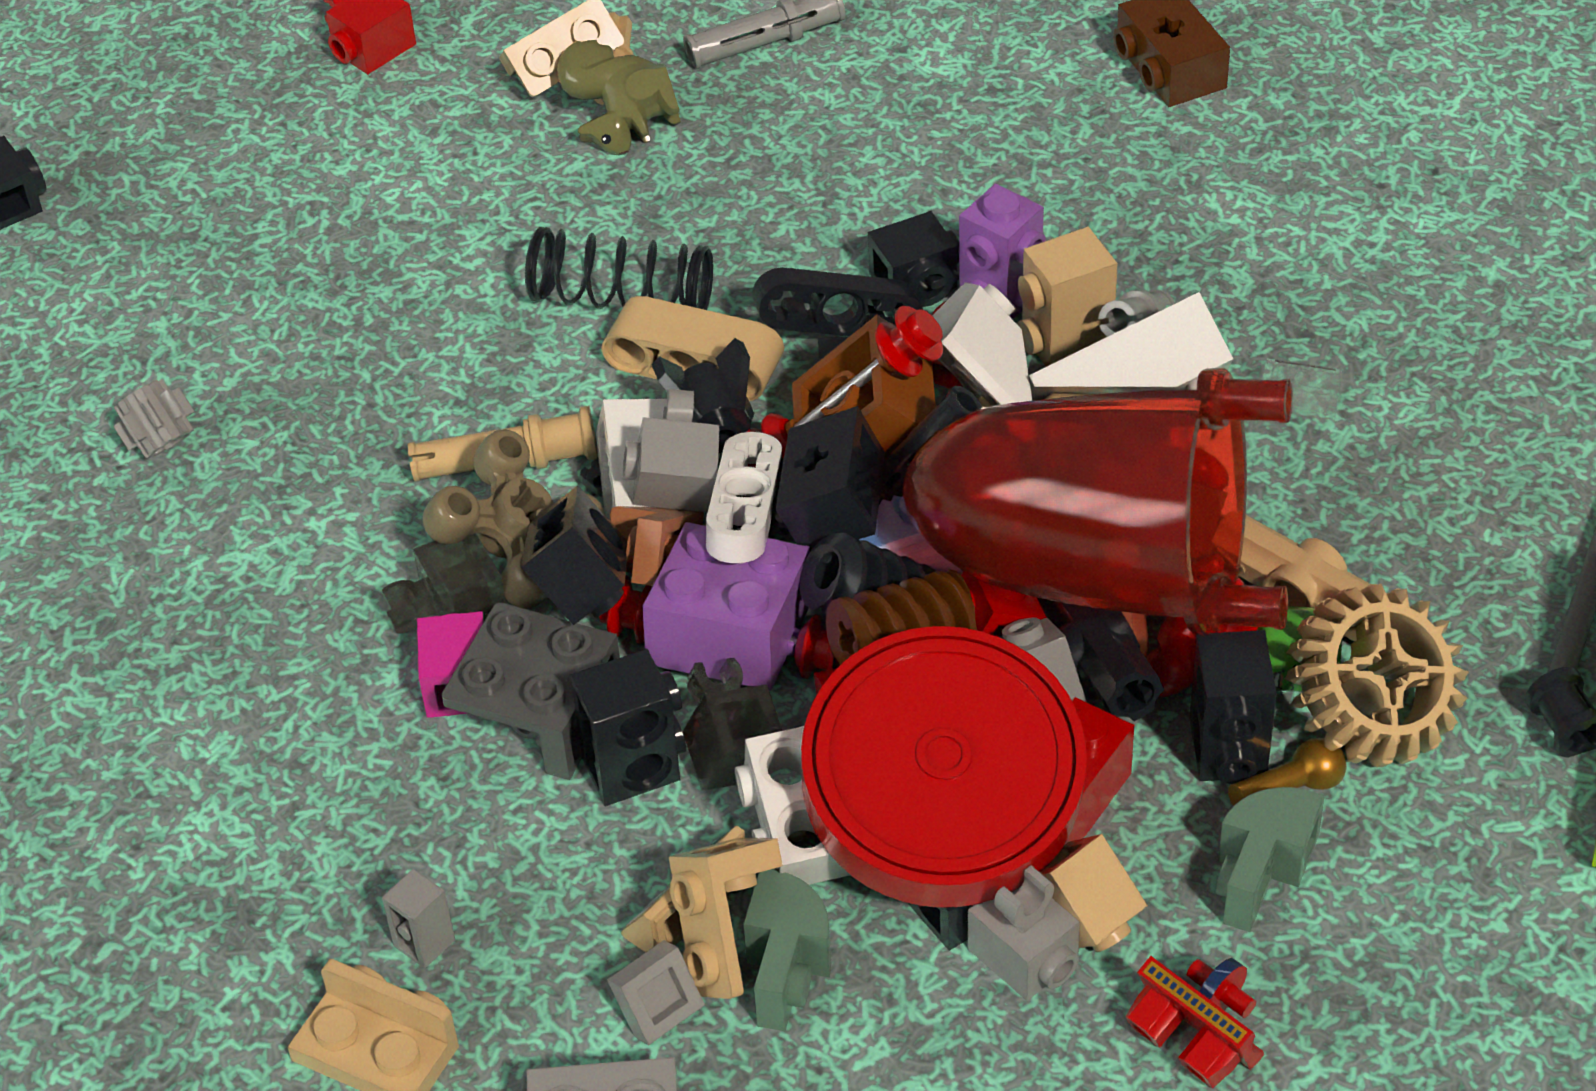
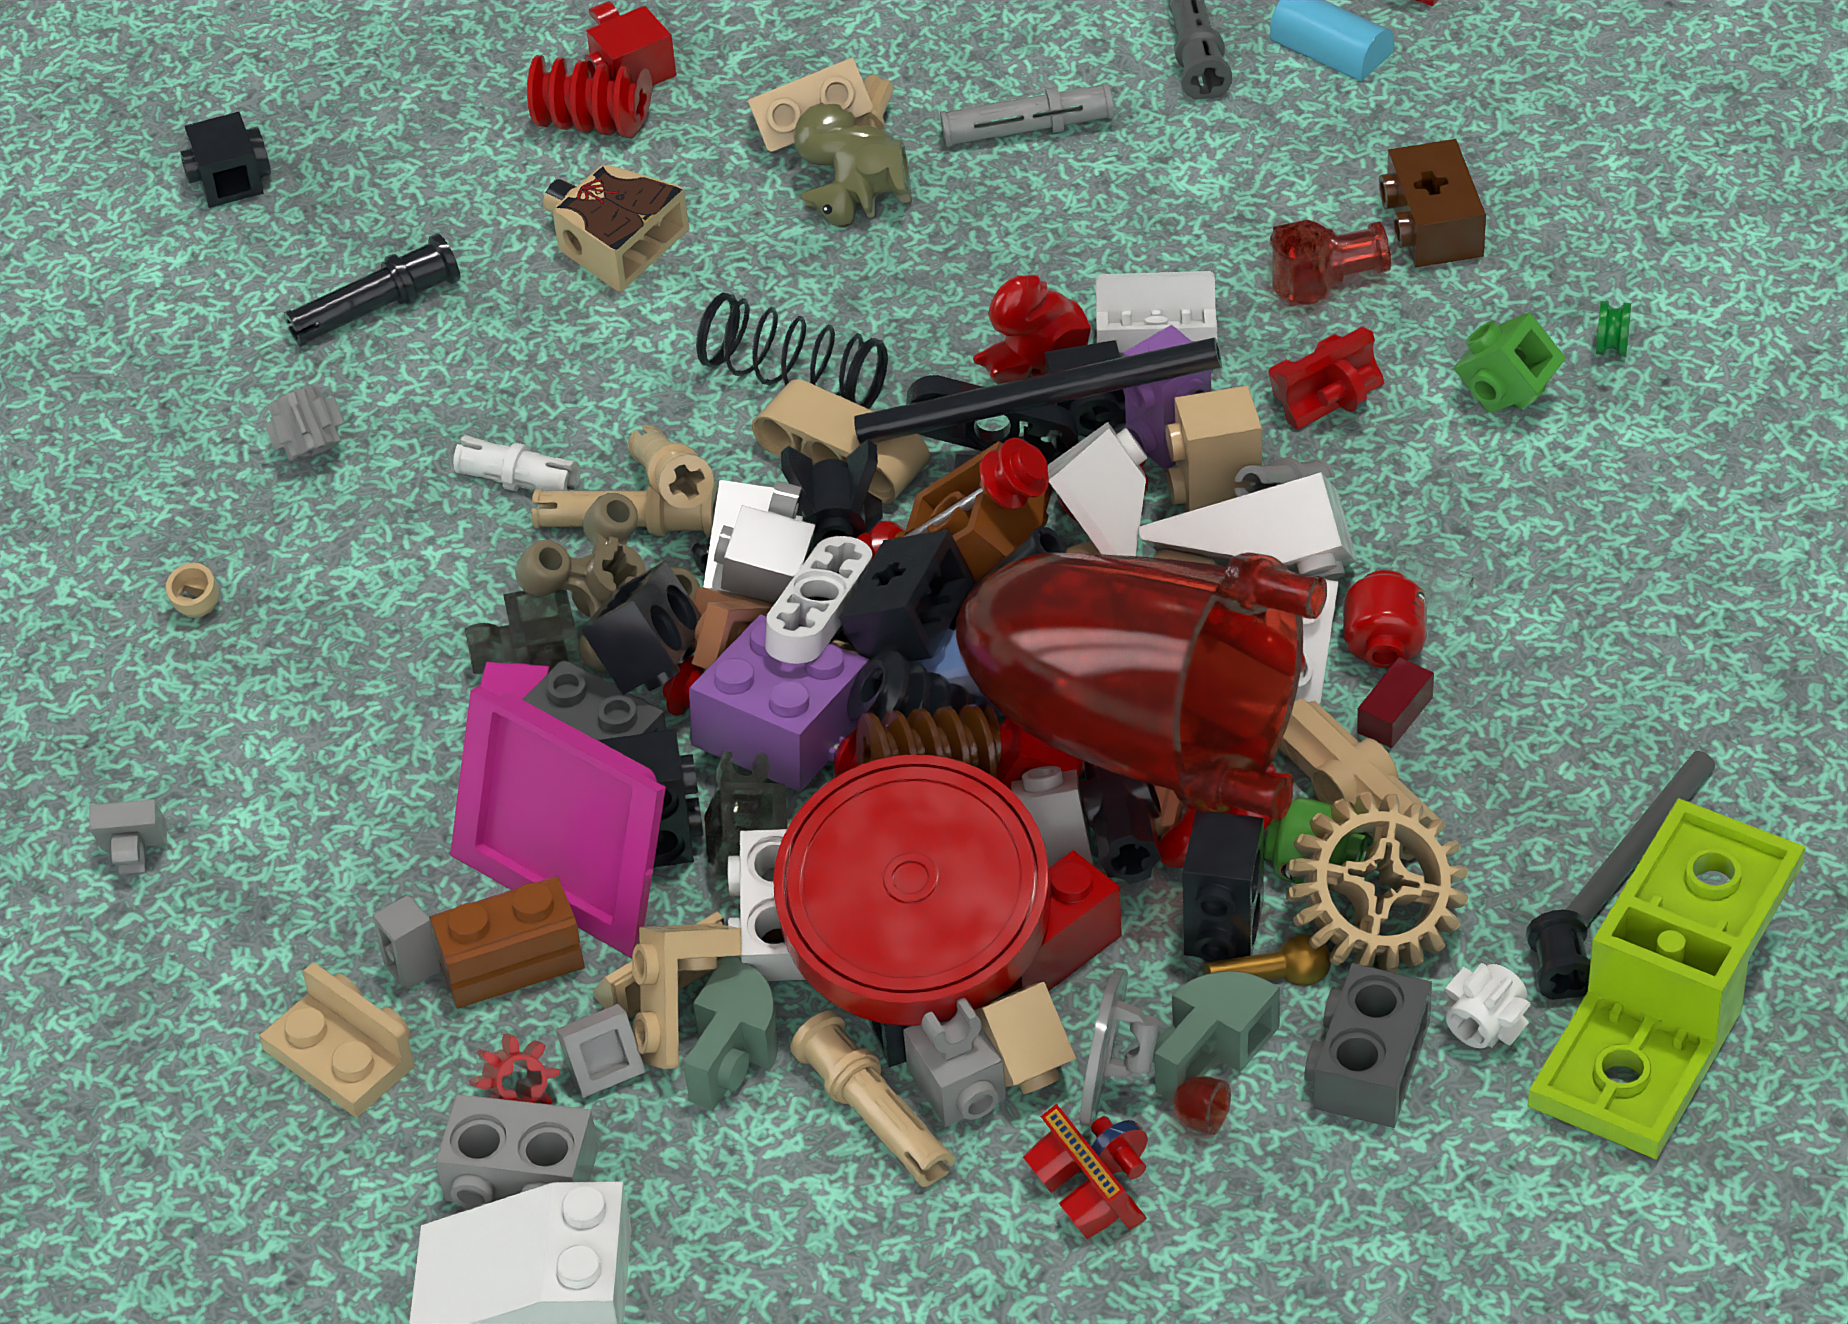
camera: 15 degrees right, 0 degrees up
(85, 857) = (127, 830): none -> light grey tile
(86, 592) = (197, 581): none -> tan hinge
(204, 269) = (397, 280): none -> black pin
(342, 74) = (587, 100): none -> red piece
(376, 425) = (515, 466): none -> white pin
(405, 181) = (616, 222): none -> torso
(524, 897) = (507, 941): none -> dark orange brick
(547, 397) = (672, 468): none -> tan pin
(548, 760) = (557, 804): none -> dark pink piece
(562, 1026) = (501, 1064): none -> red gear
(850, 208) = (1033, 323): none -> red animal
(888, 265) = (1038, 391): none -> black piece
(924, 969) = (855, 1079): none -> tan pin
(948, 177) = (1142, 304): none -> white bracket
(1080, 111) = (1314, 259): none -> clear red connector
(1136, 214) = (1329, 378): none -> red hips
(1180, 885) = (1100, 1058): none -> light grey shield
(1272, 441) = (1384, 618): none -> red head
(1278, 926) = (1202, 1103): none -> clear red hinge
(1300, 173) = (1509, 362): none -> bright green brick
(1312, 500) = (1395, 702): none -> dark red piece
(1376, 130) = (1613, 328): none -> green bush
(1425, 835) = (1369, 1045): none -> dark grey brick
(1521, 775) = (1486, 1006): none -> white gear

